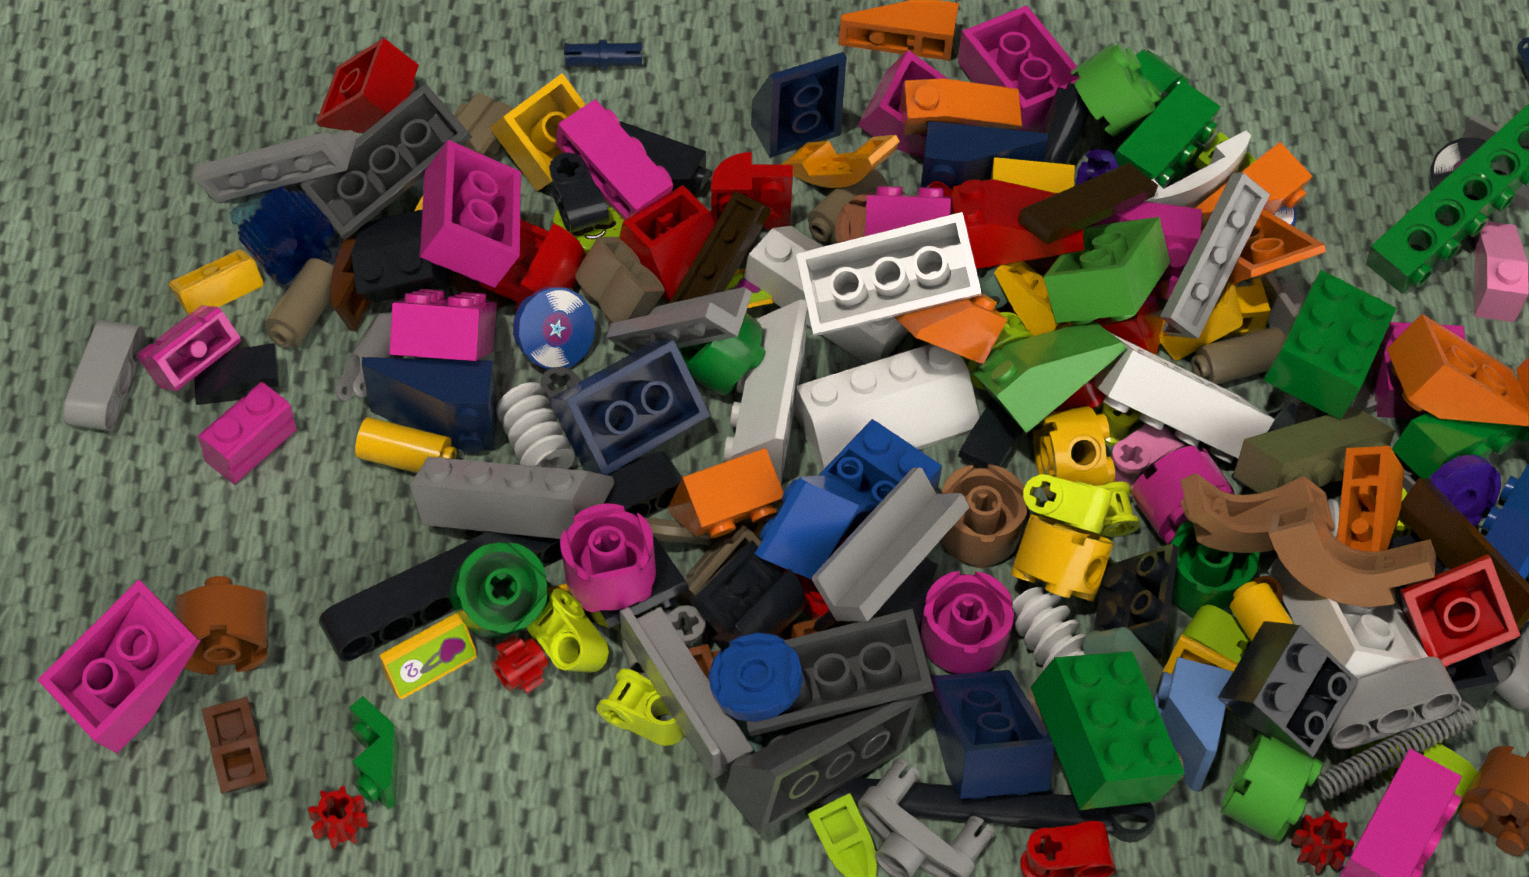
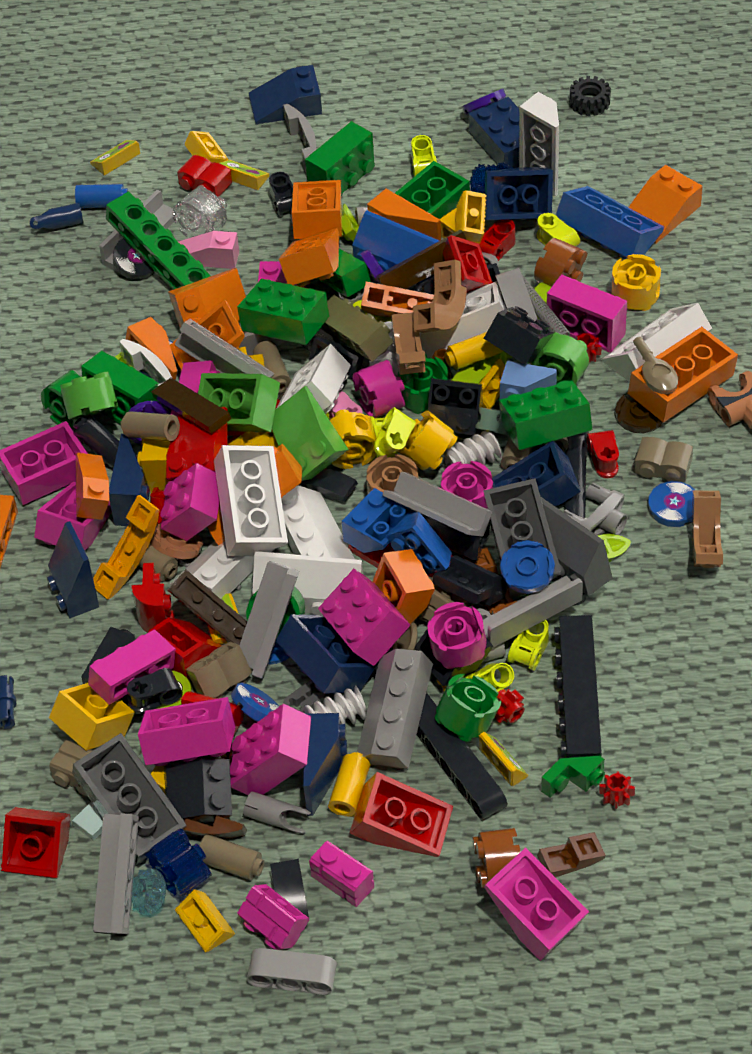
camera: 85 degrees left, 5 degrees down
(333, 512) = (400, 817): none -> red slope
(540, 773) = (578, 686): none -> black brick
(669, 439) = (363, 617): none -> dark pink brick
(1045, 155) = (150, 426): none -> dark tan brick
(1364, 251) = (200, 297): none -> orange slope

